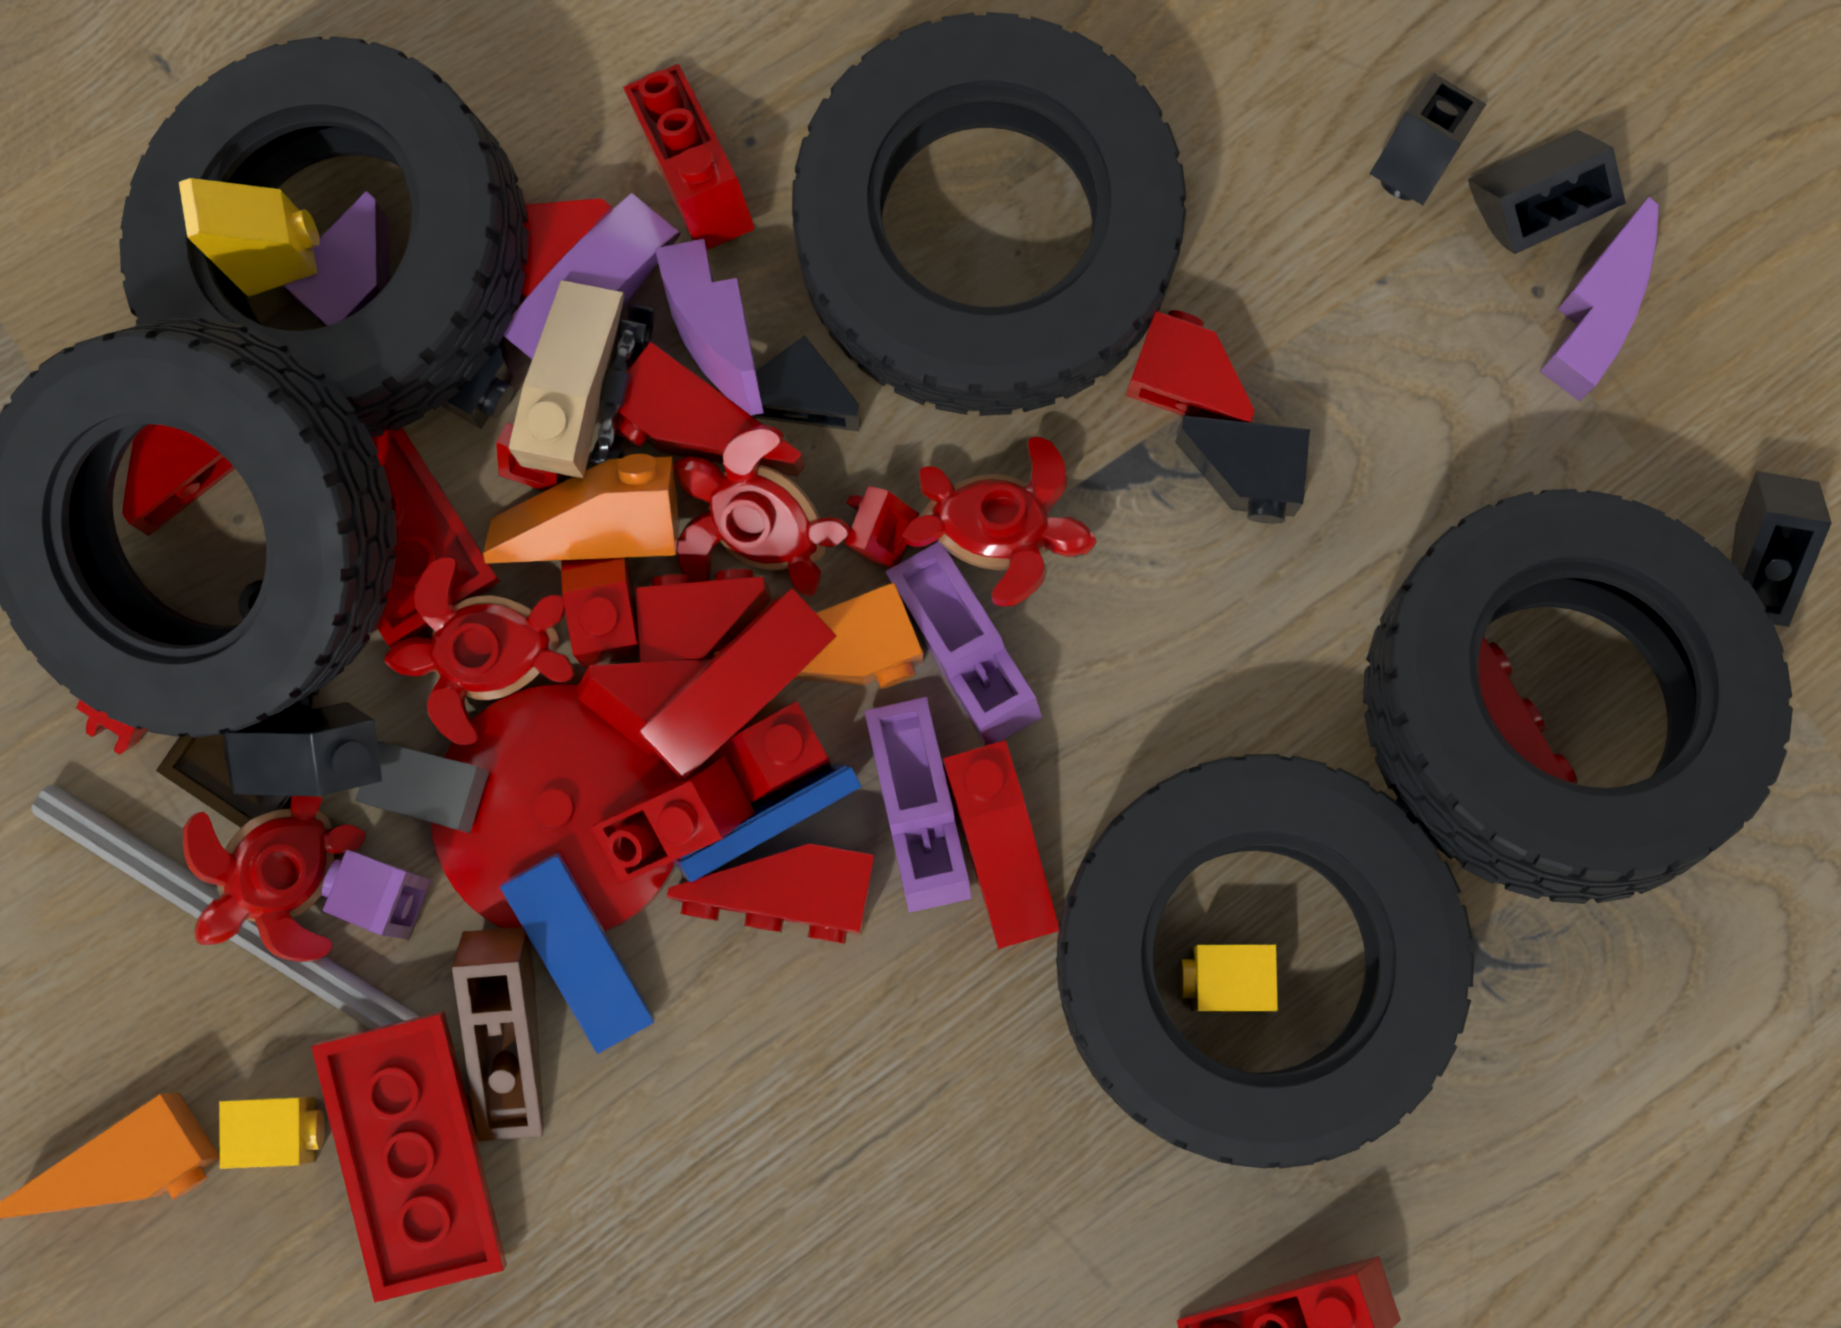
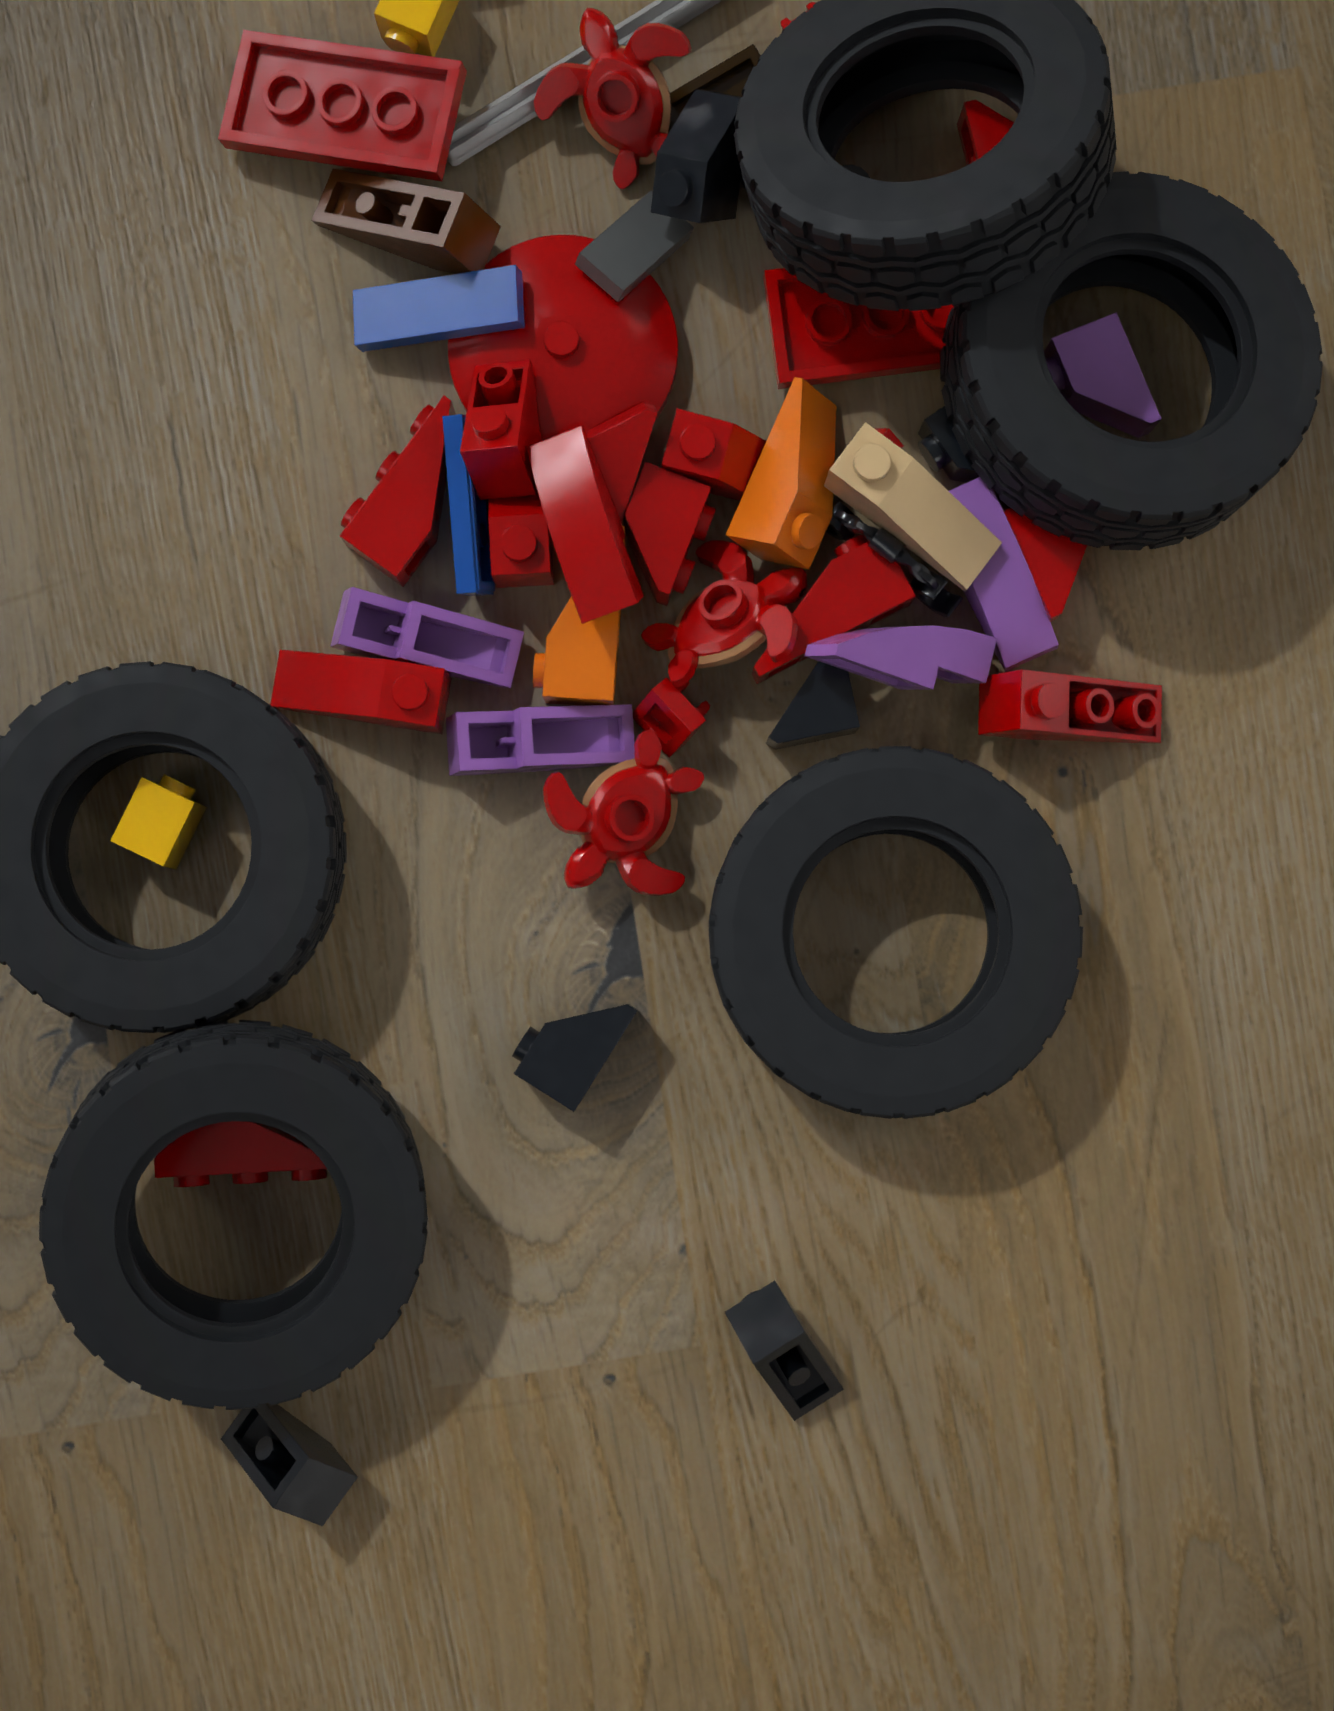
camera: 115 degrees right, 5 degrees up
(250, 233) = (1162, 296): yellow slope -> none
(374, 895) = (561, 168): medium lavender slope -> none
(477, 648) = (725, 340): red animal -> none
(1188, 371) = (678, 1039): red slope -> none
(1548, 190) = (689, 1431): black brick -> none
(1605, 305) = (565, 1428): medium lavender slope -> none

